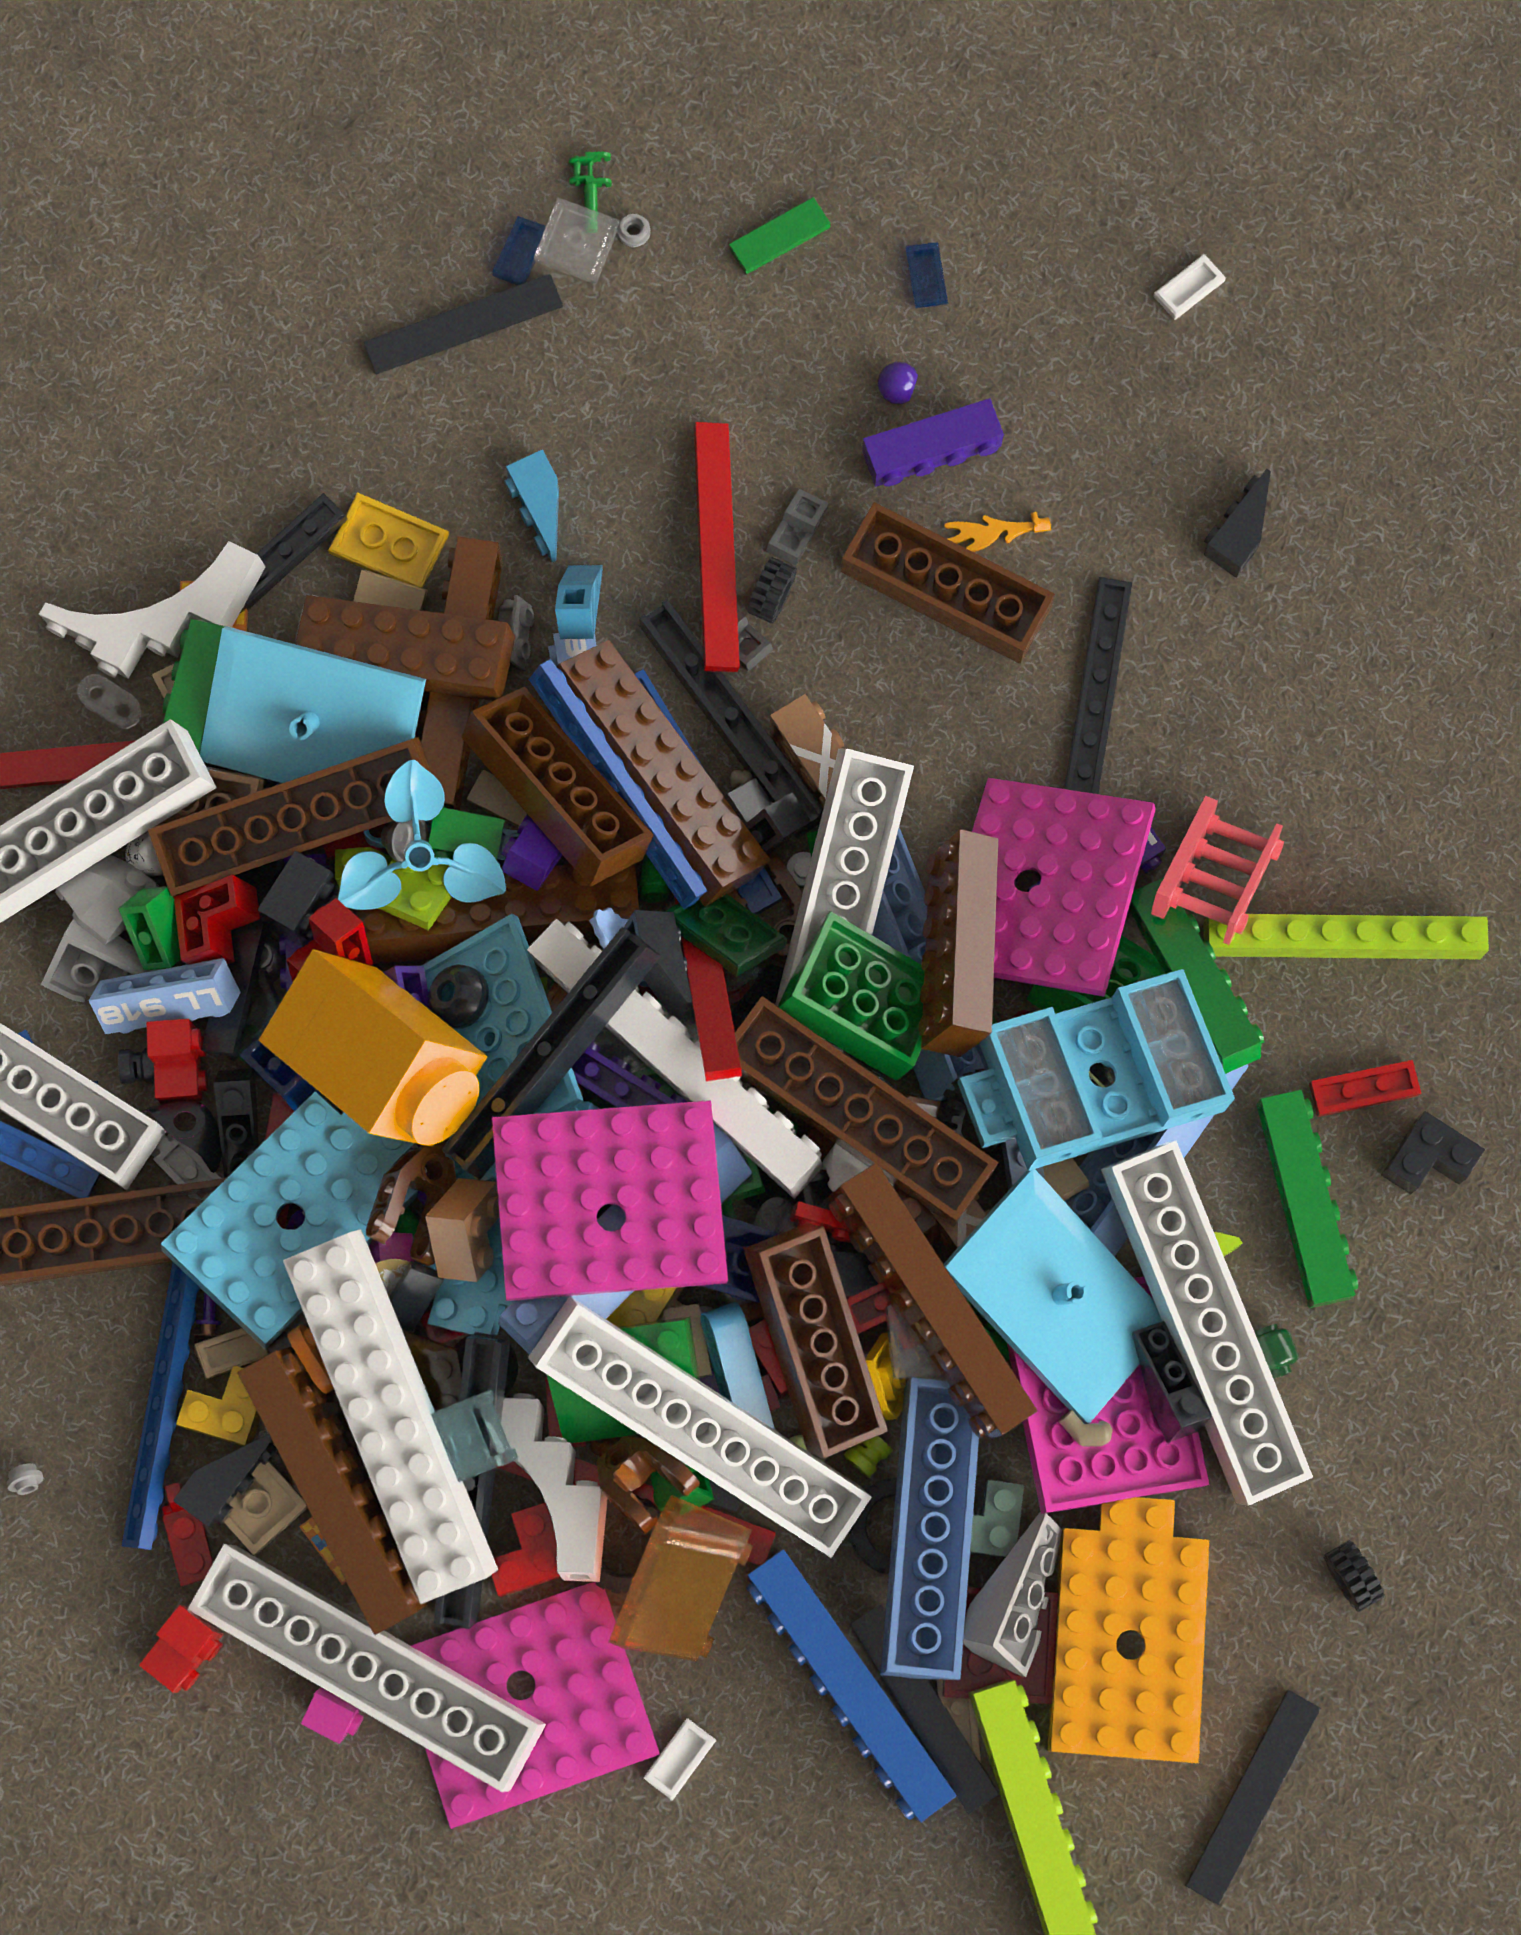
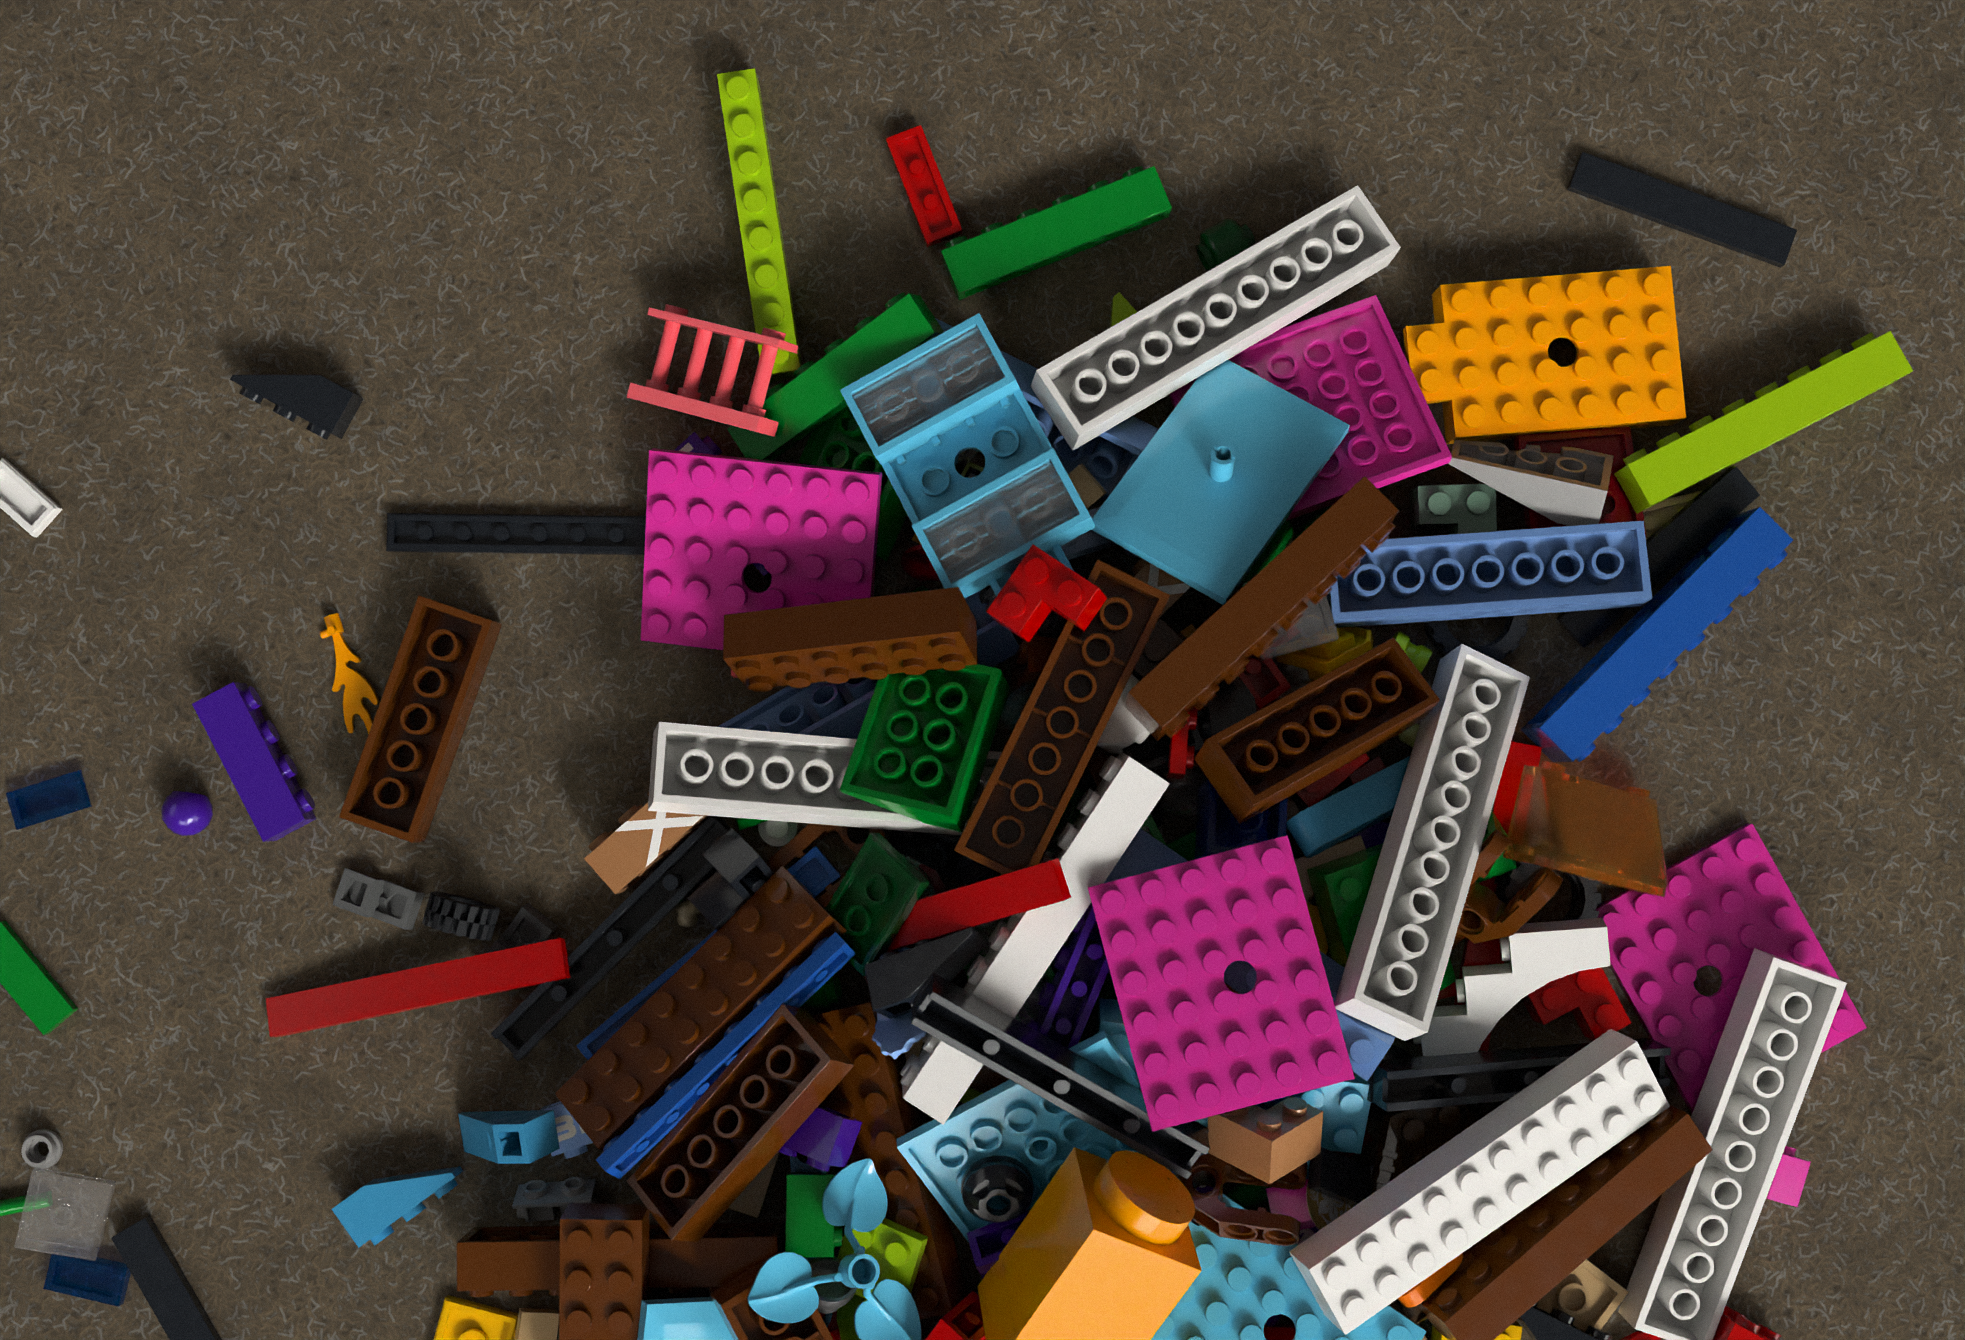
camera: 100 degrees left, 10 degrees up
(465, 1441) = (1491, 1091): clear light blue plate -> none
(679, 1759) = (1751, 801): white tile -> none
(979, 1105) = (1042, 586): none -> red brick
(1086, 1434) = (1361, 426): dark tan arm -> none
(1169, 1383) = (1286, 347): black slope -> none
(1354, 1576) = (1448, 132): black tyre -> none
(1430, 1146) = (979, 112): black brick -> none

